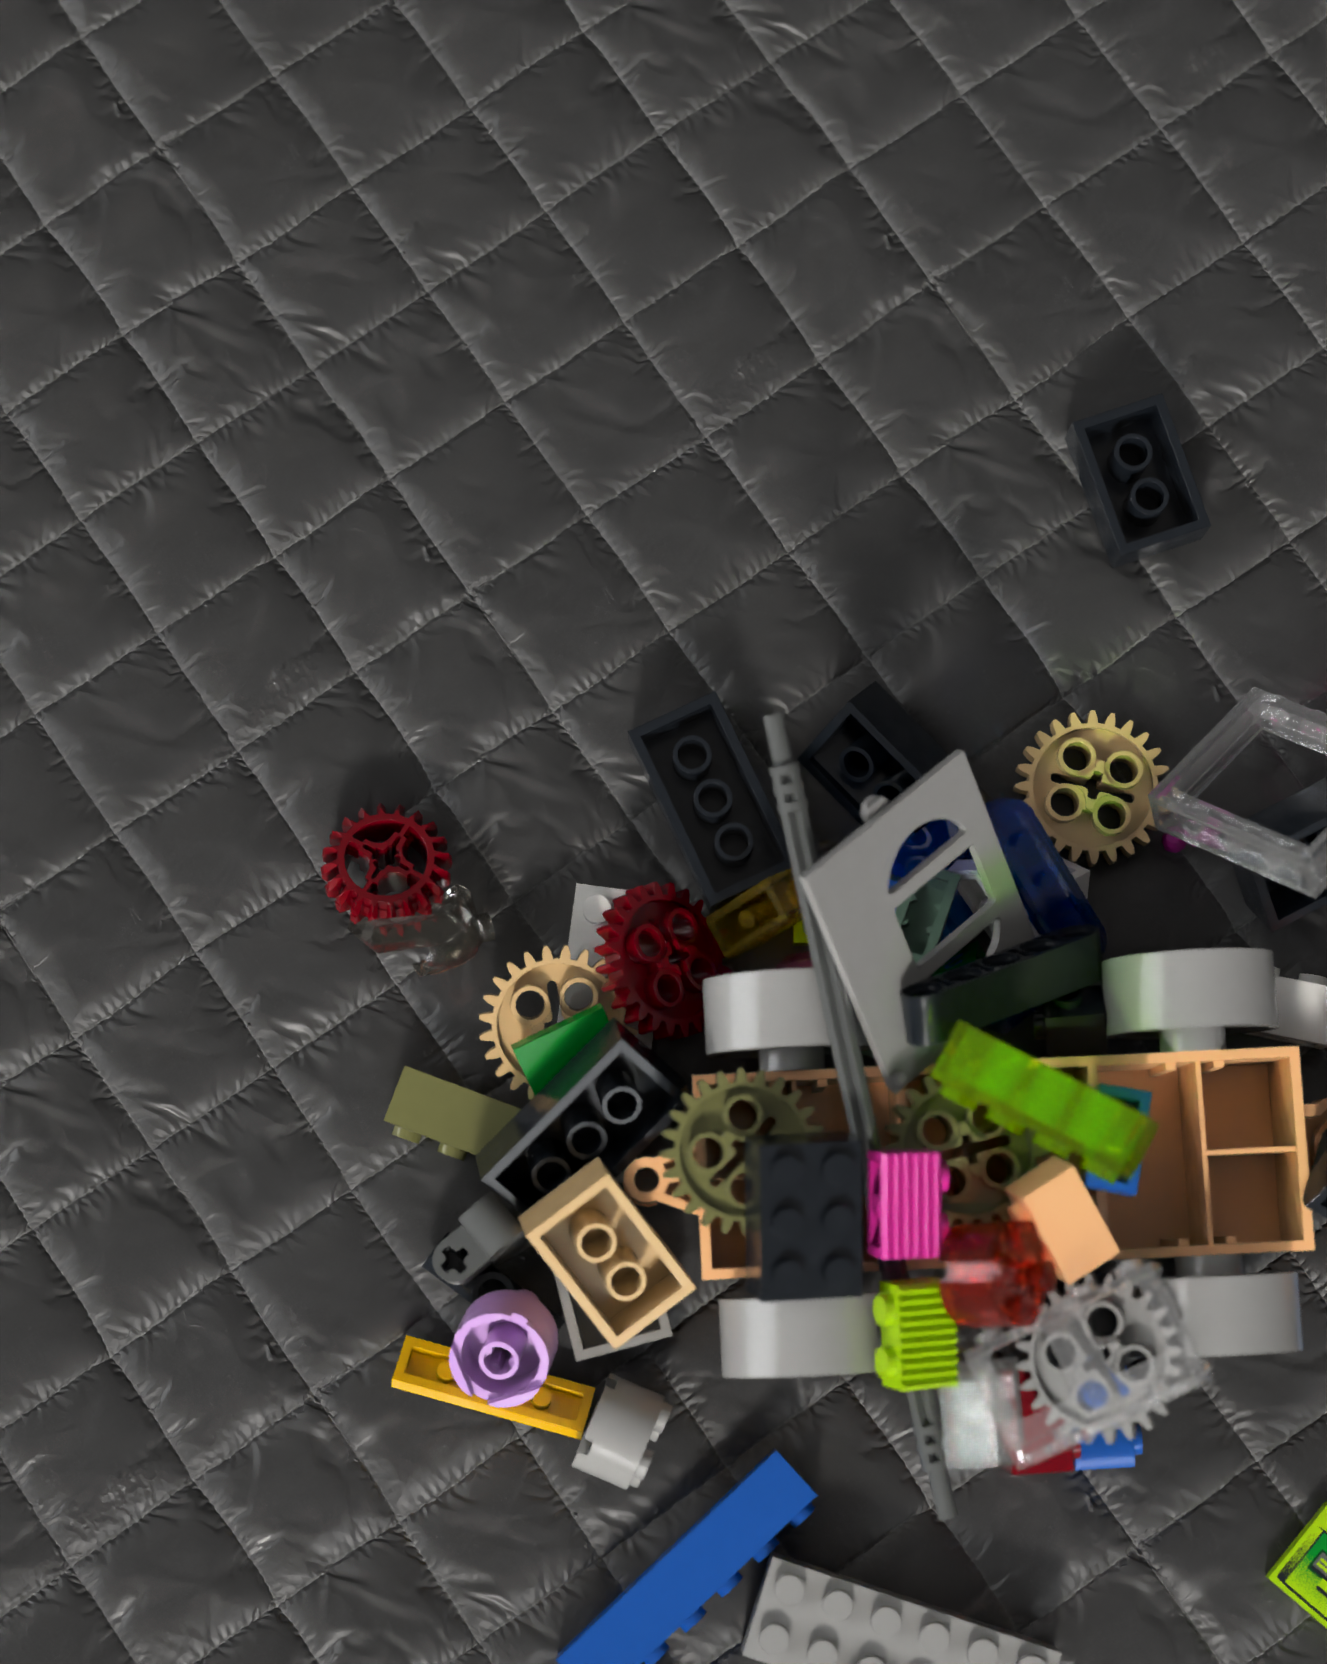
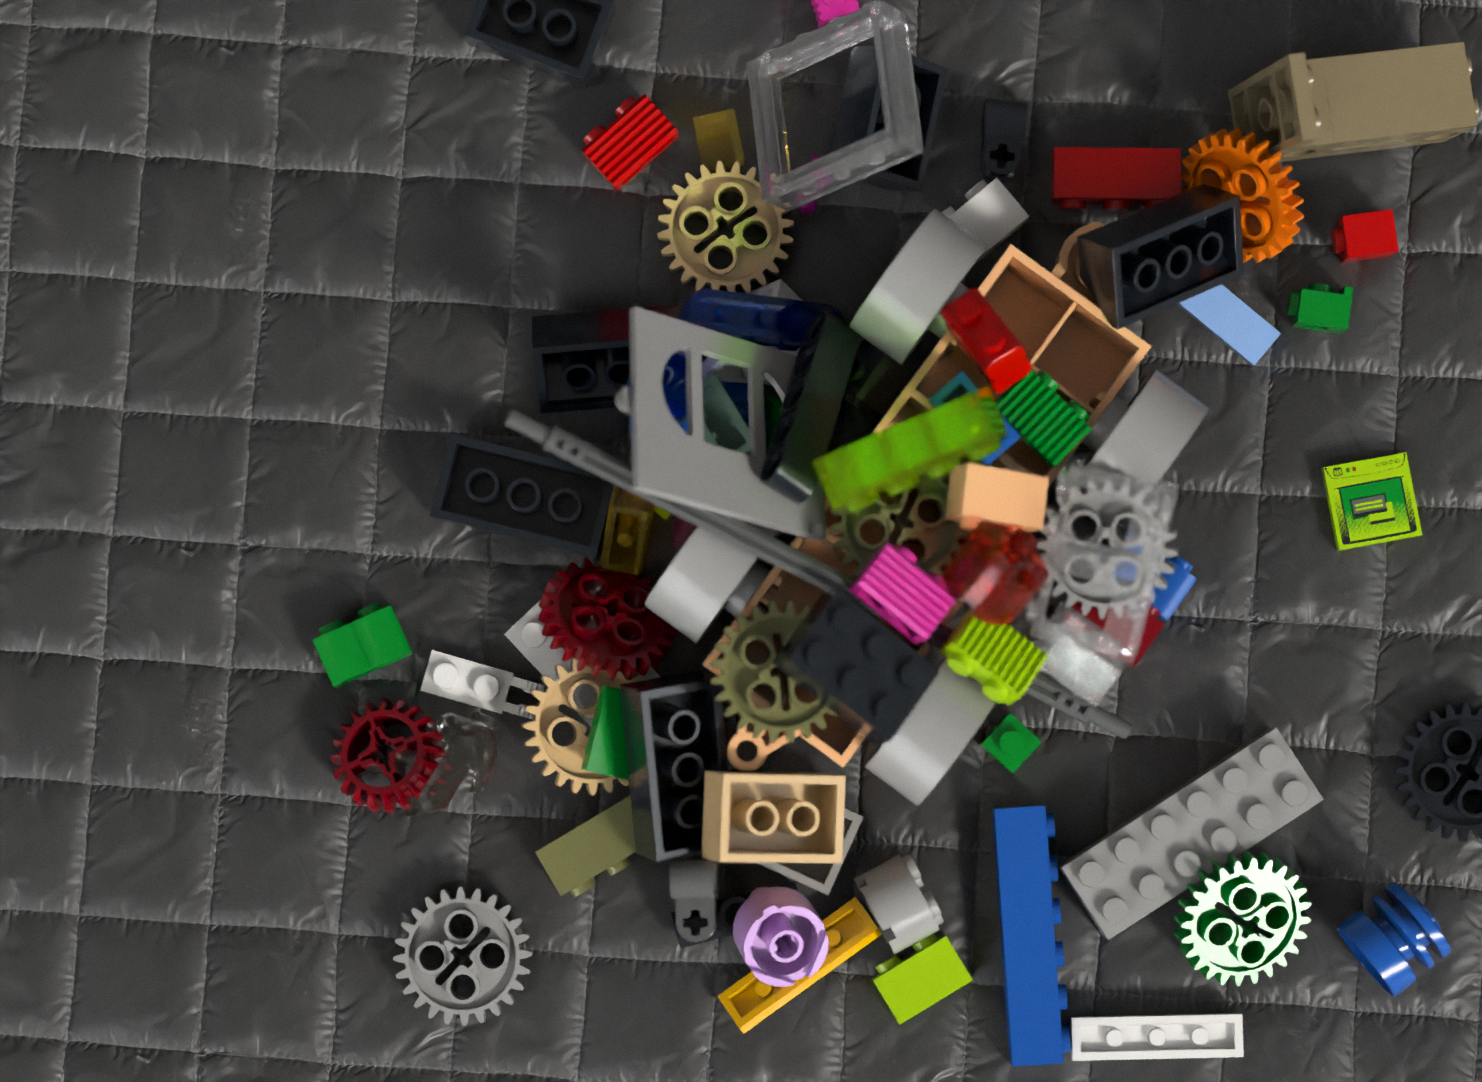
camera: 50 degrees left, 5 degrees up
(266, 1034) = (435, 929): none -> light grey gear
(466, 767) = (362, 645): none -> green brick
(511, 892) = (474, 683): none -> white hinge
(569, 1507) = (920, 977): none -> lime brick
(847, 1416) = (1010, 743): none -> green brick
(1098, 642) = (629, 141): none -> red brick
(1166, 717) = (718, 139): none -> clear yellow panel
(1169, 1201) = (1043, 417): none -> green brick
(1196, 1092) = (986, 340): none -> red brick

